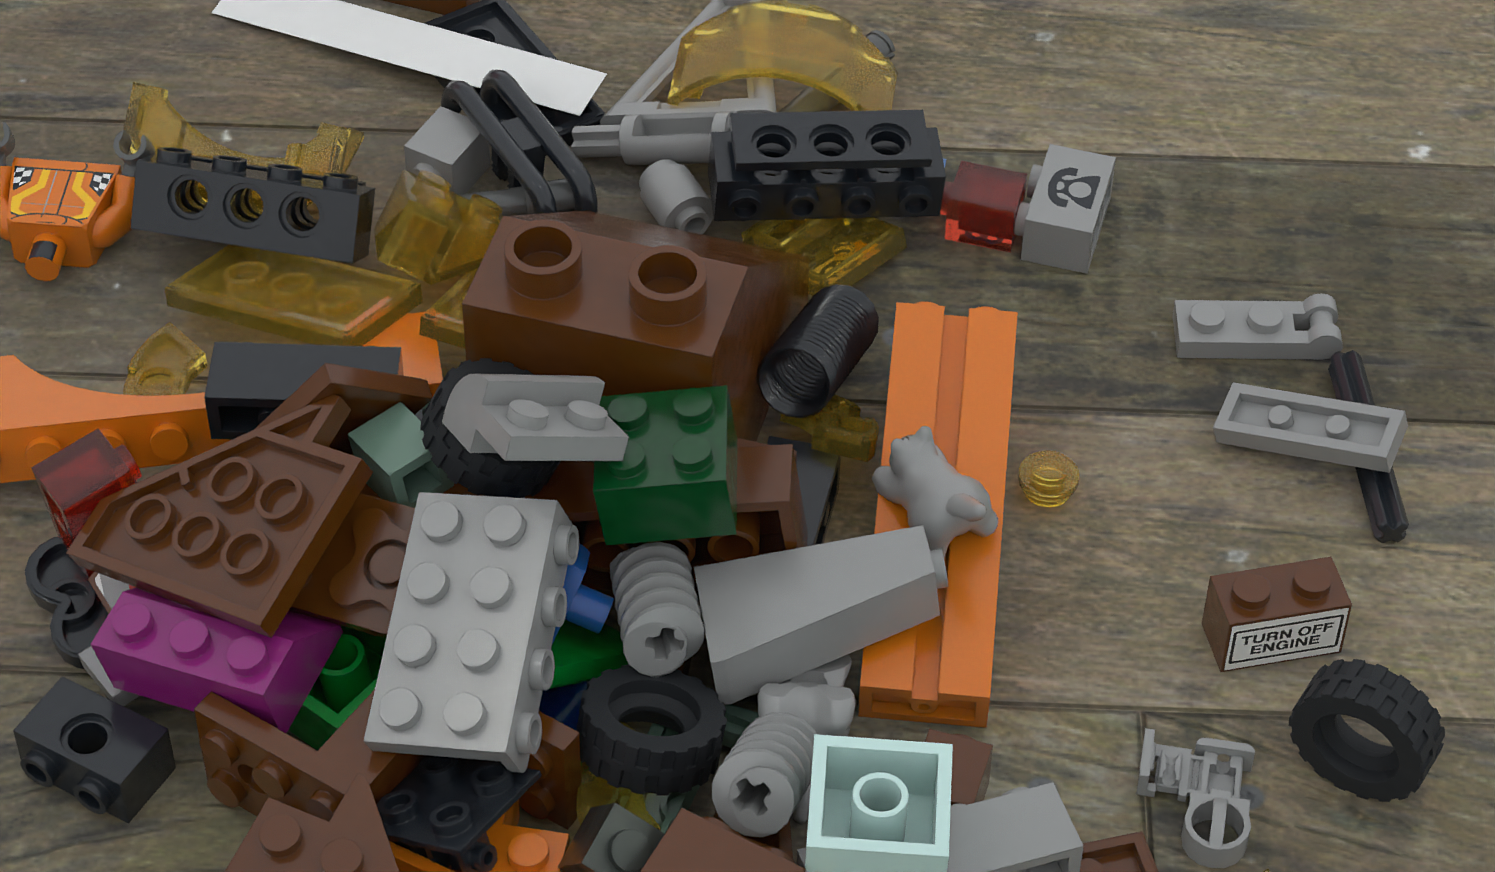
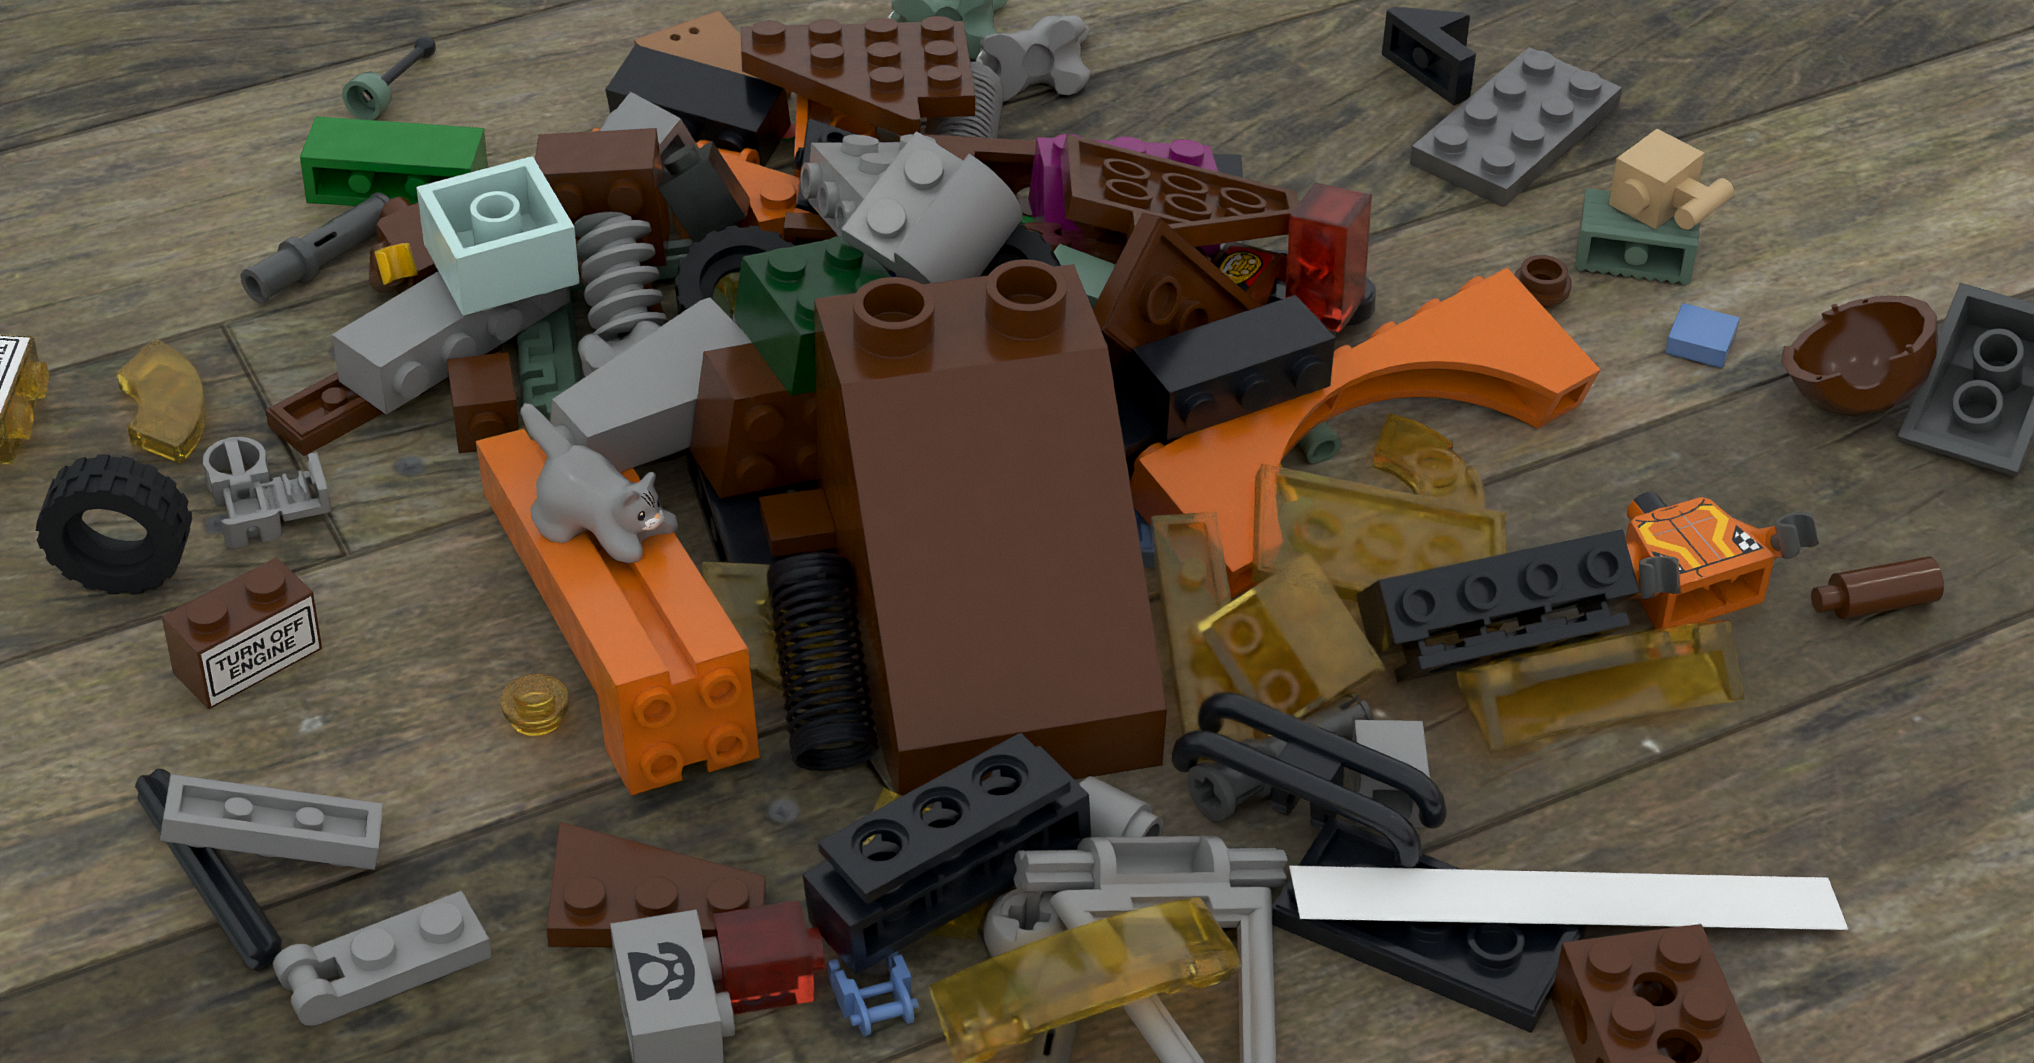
camera: 150 degrees right, 5 degrees down
(1053, 303) = (618, 880): none -> reddish brown wing

